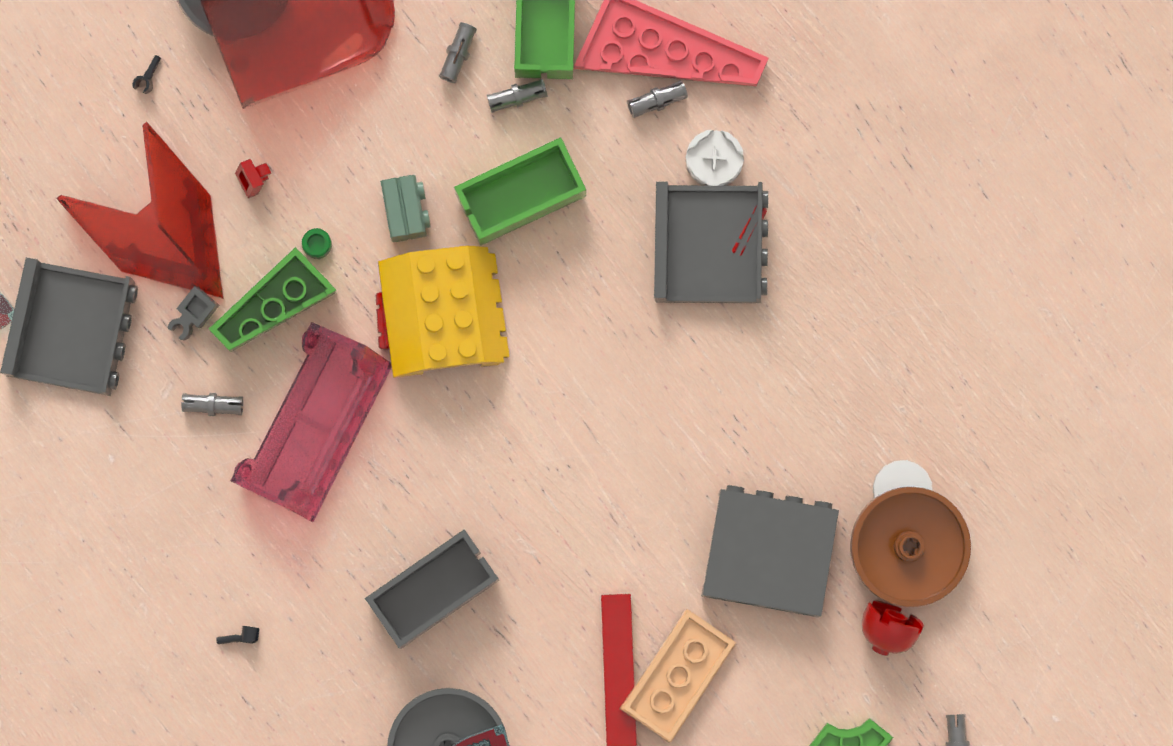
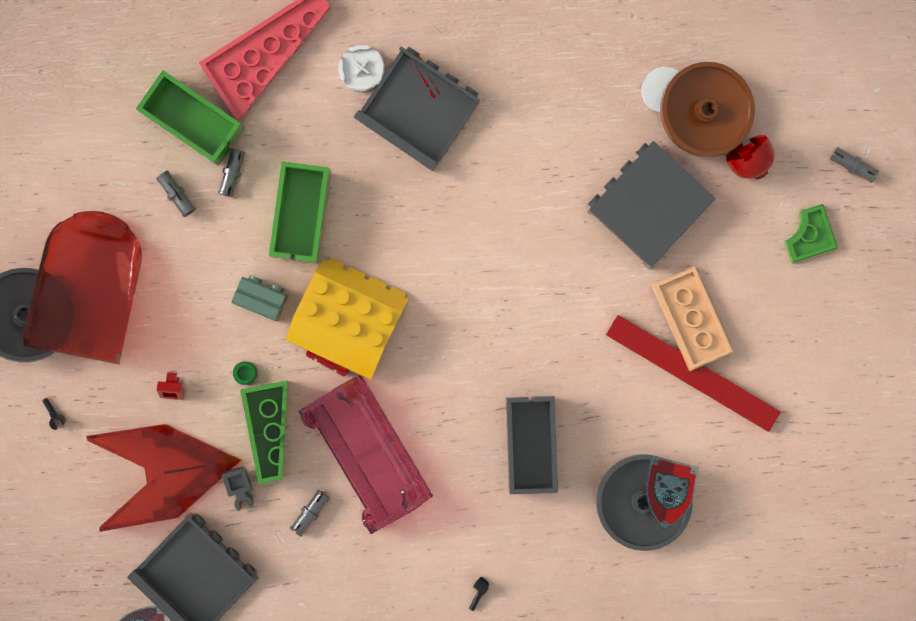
camera: 55 degrees left, 5 degrees up
(657, 99) = (296, 80): flat silver pin -> none

